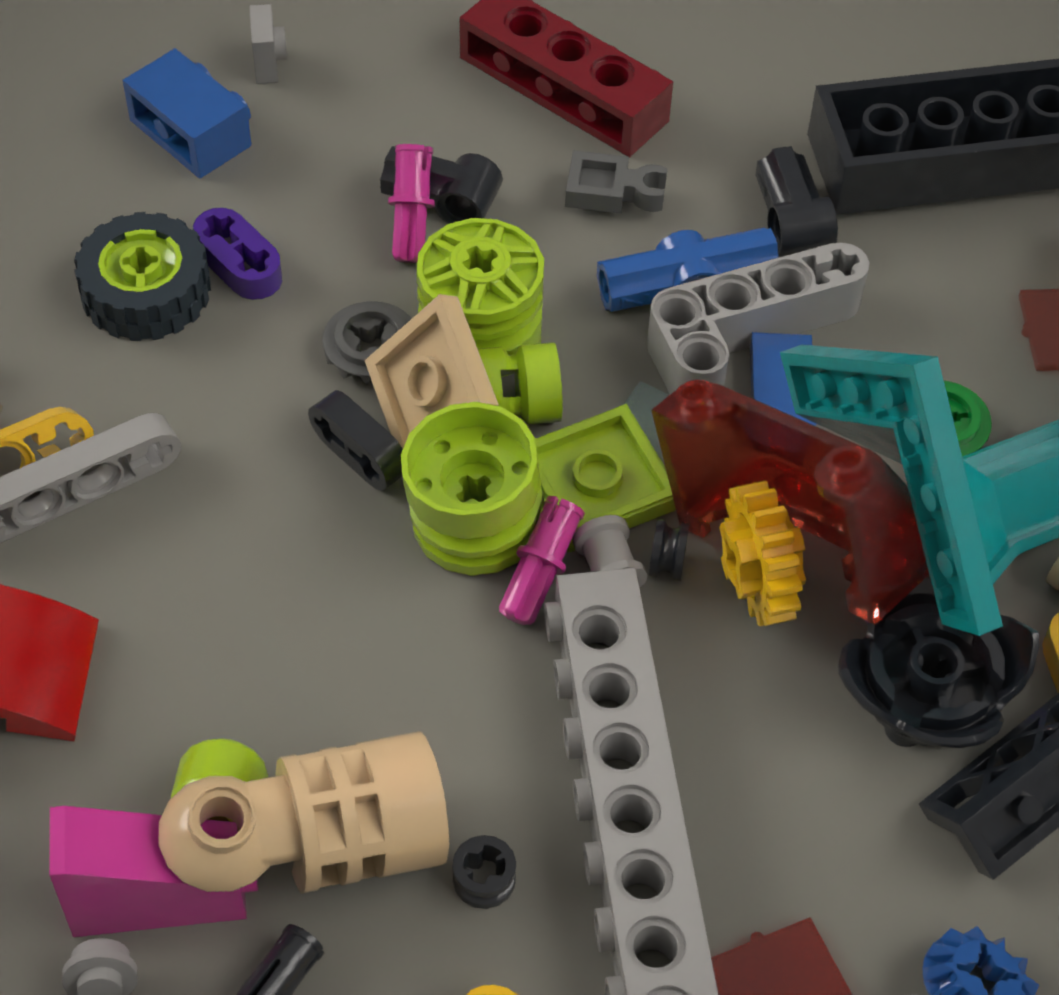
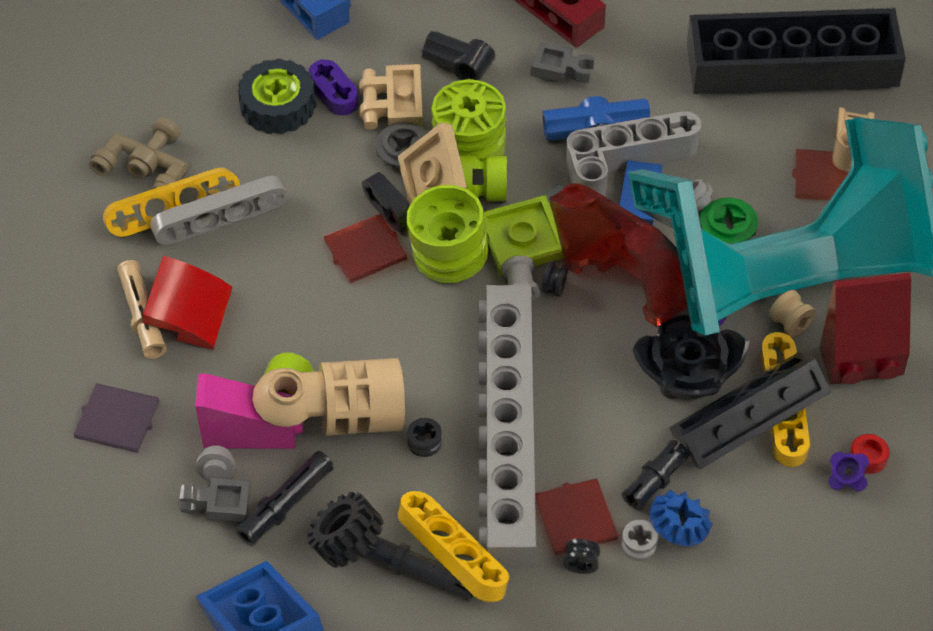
camera: 10 degrees right, 0 degrees up
(327, 526) = (365, 248): none -> clear red piece
(358, 256) = (403, 96): none -> tan plate
(410, 200) = (437, 63): dark pink axle -> none
(540, 560) = (480, 276): dark pink axle -> none
(763, 553) = (603, 284): yellow gear -> none
(794, 207) = (667, 88): black piece -> none
(915, 900) = (655, 474): none -> black pin

